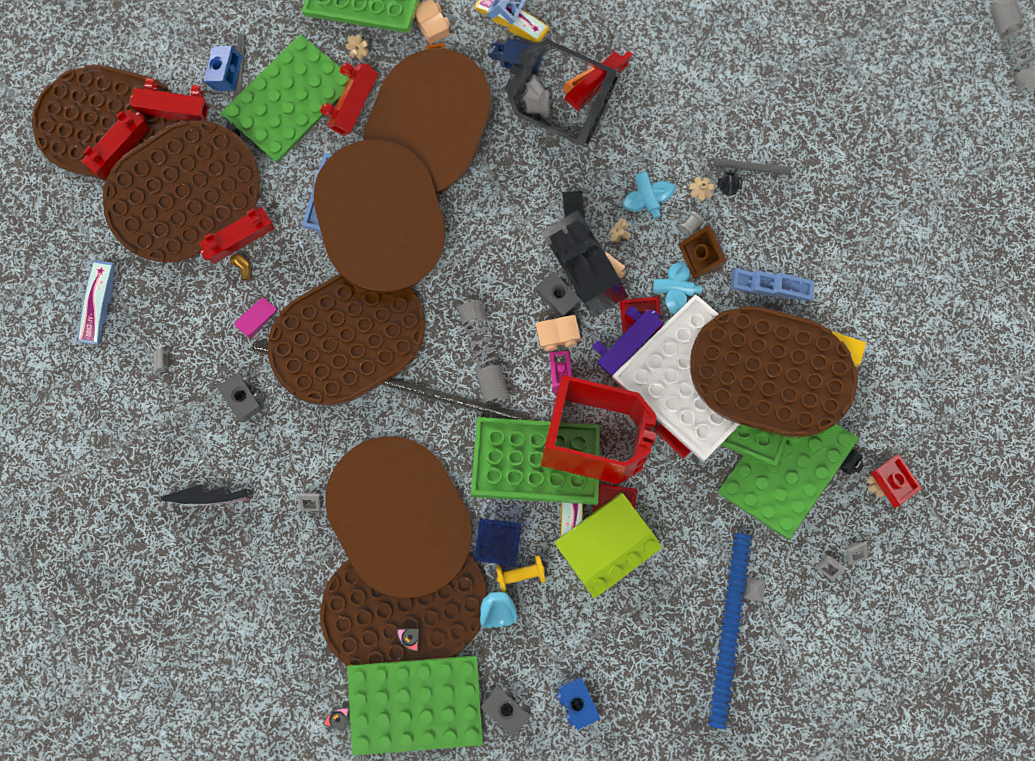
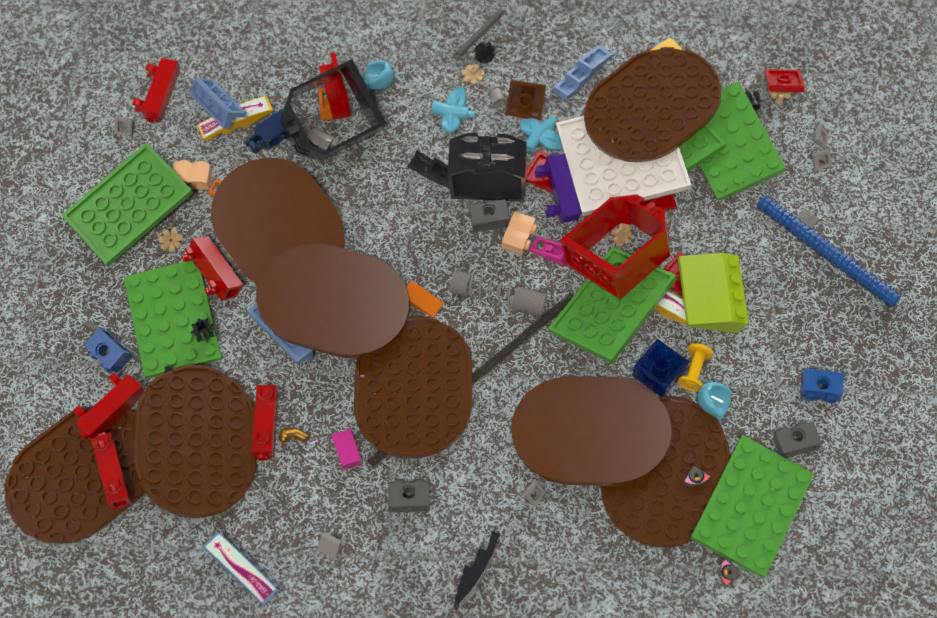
camera: 55 degrees left, 15 degrees down
(282, 124) = (200, 332): none -> black gear
(437, 290) = (423, 300): none -> orange slope
(618, 425) = (622, 234): none -> tan plant
(637, 108) = (378, 75): none -> medium azure hair

